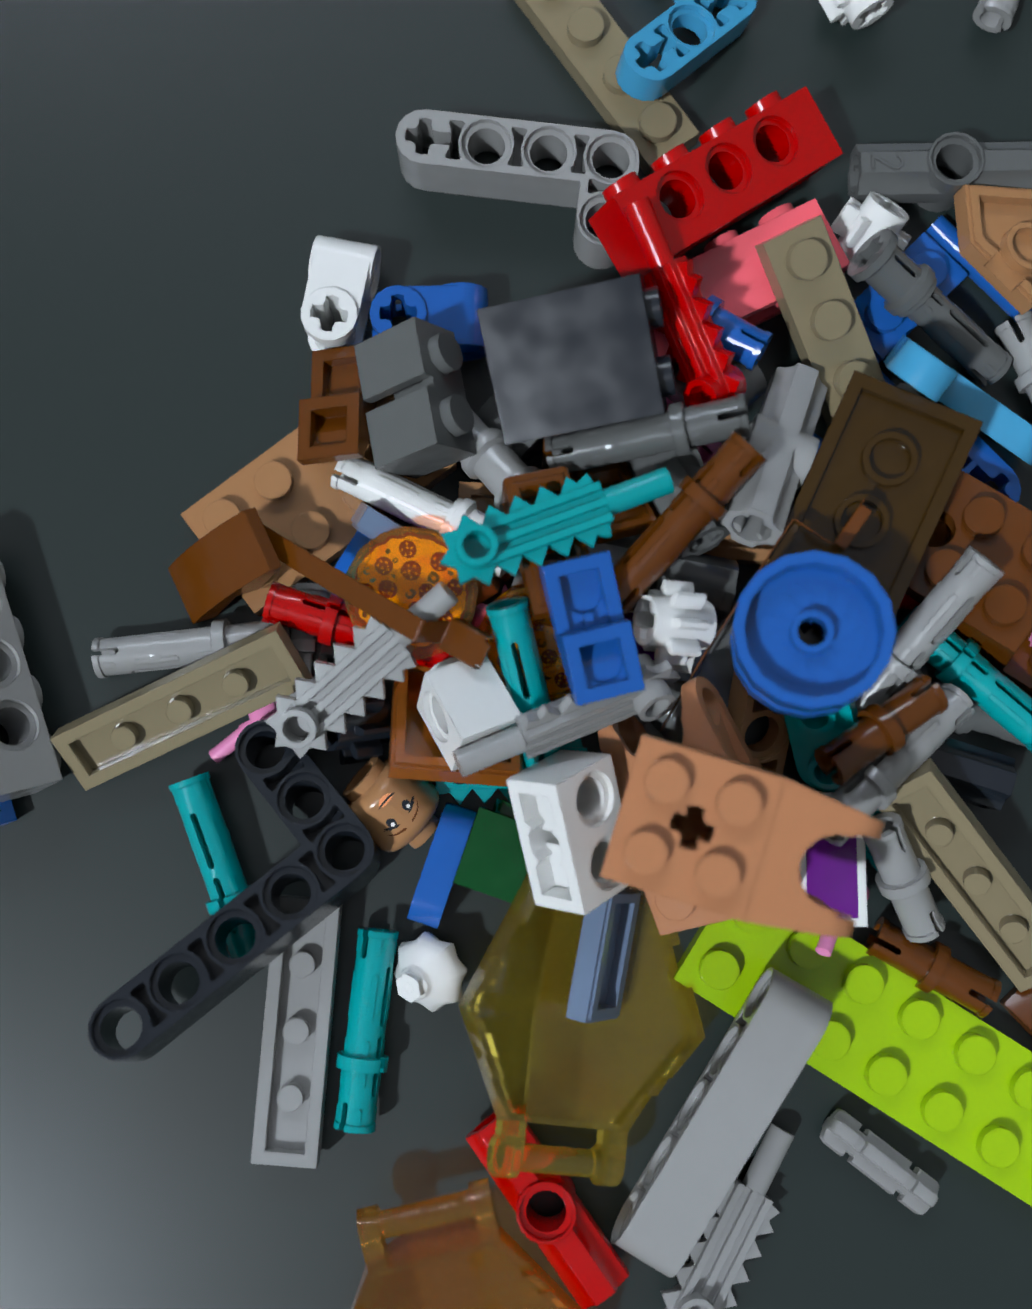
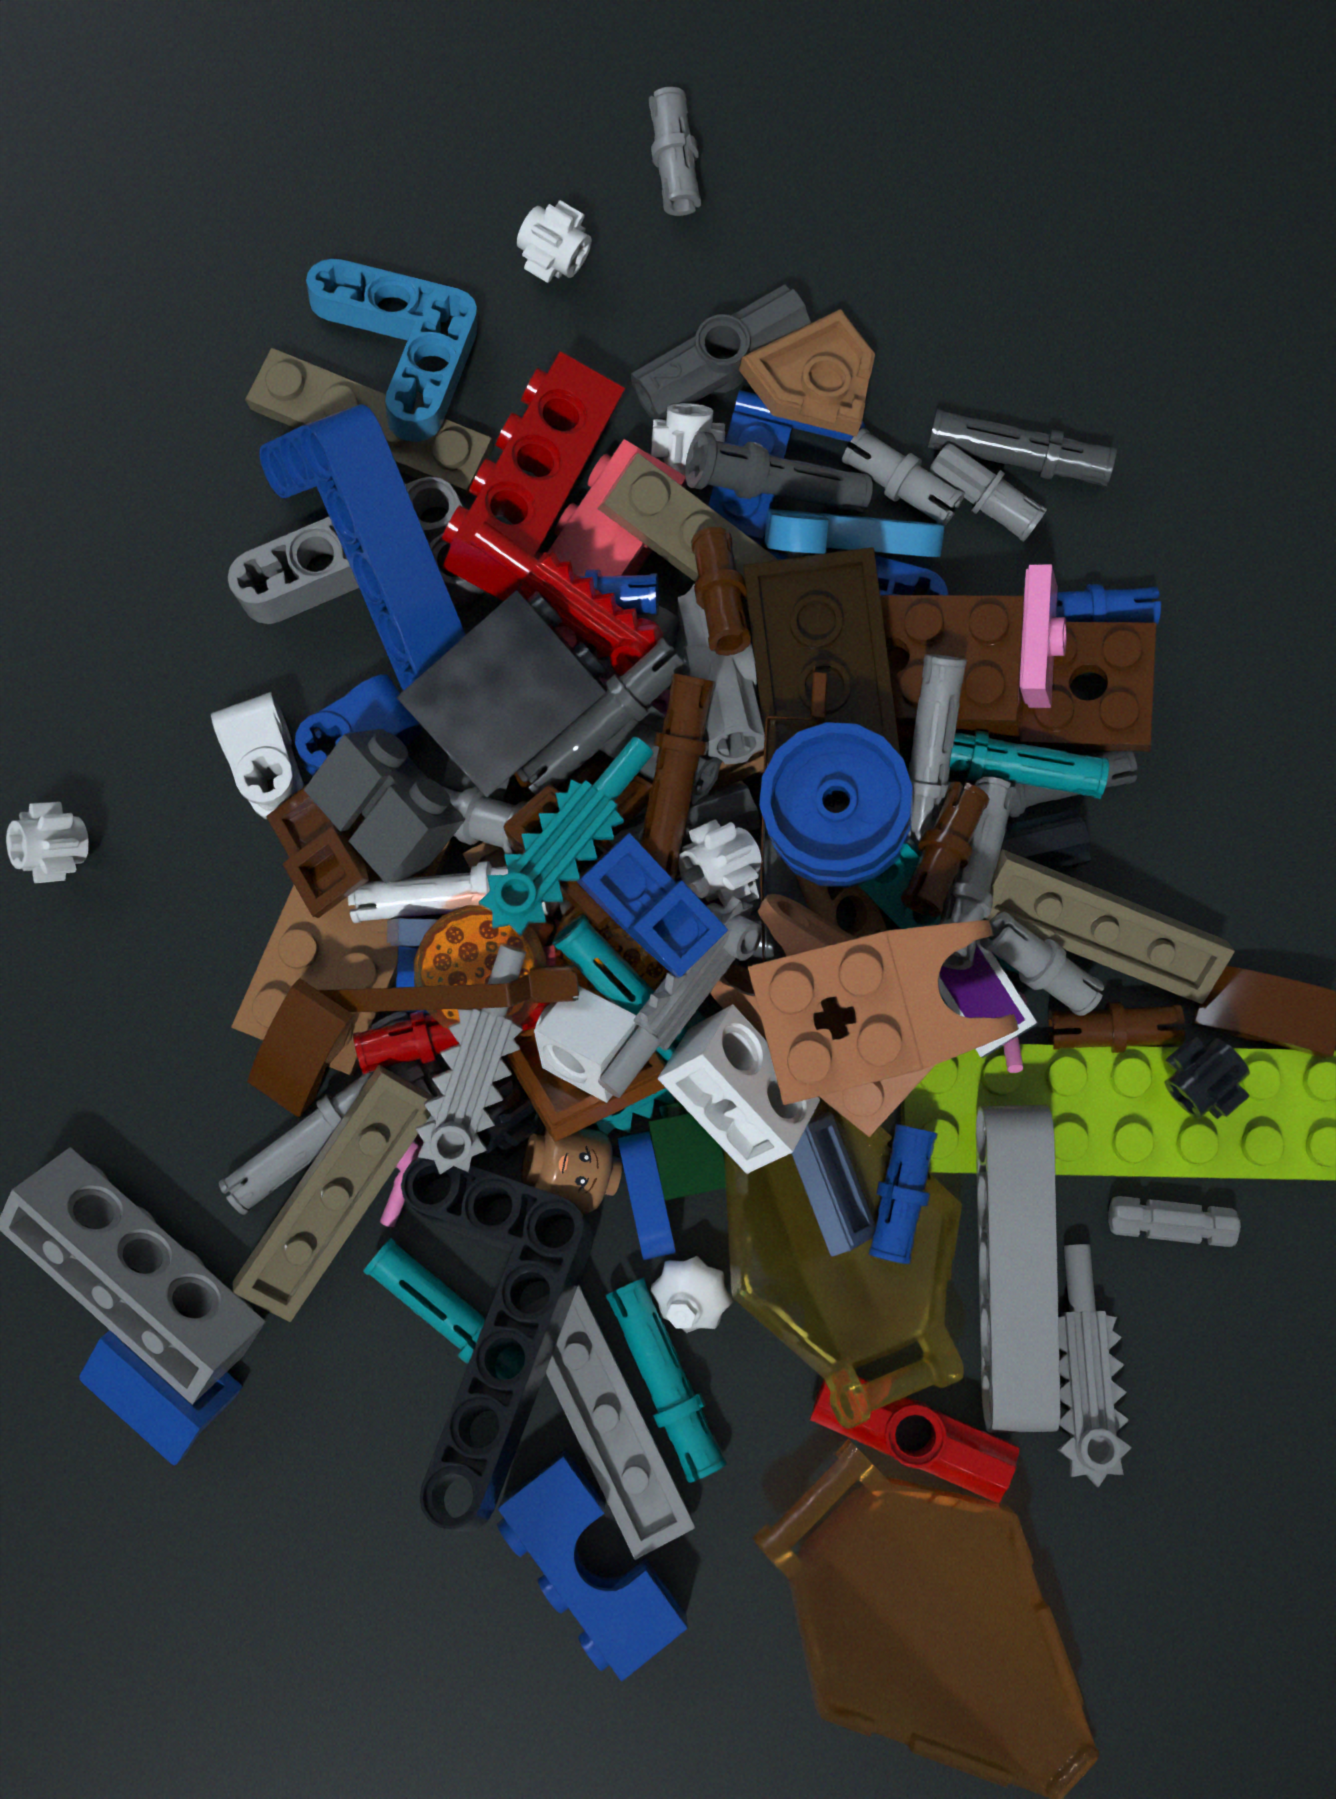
camera: 30 degrees left, 5 degrees down
(117, 265) = (47, 842): none -> white gear
(212, 1202) = (621, 1616): none -> blue arch
(554, 135) = (377, 530): none -> blue beam
(659, 1000) = (902, 1194): none -> blue pin
(820, 382) = (720, 591): none -> reddish brown pin
(988, 1065) = (1207, 1078): none -> black gear

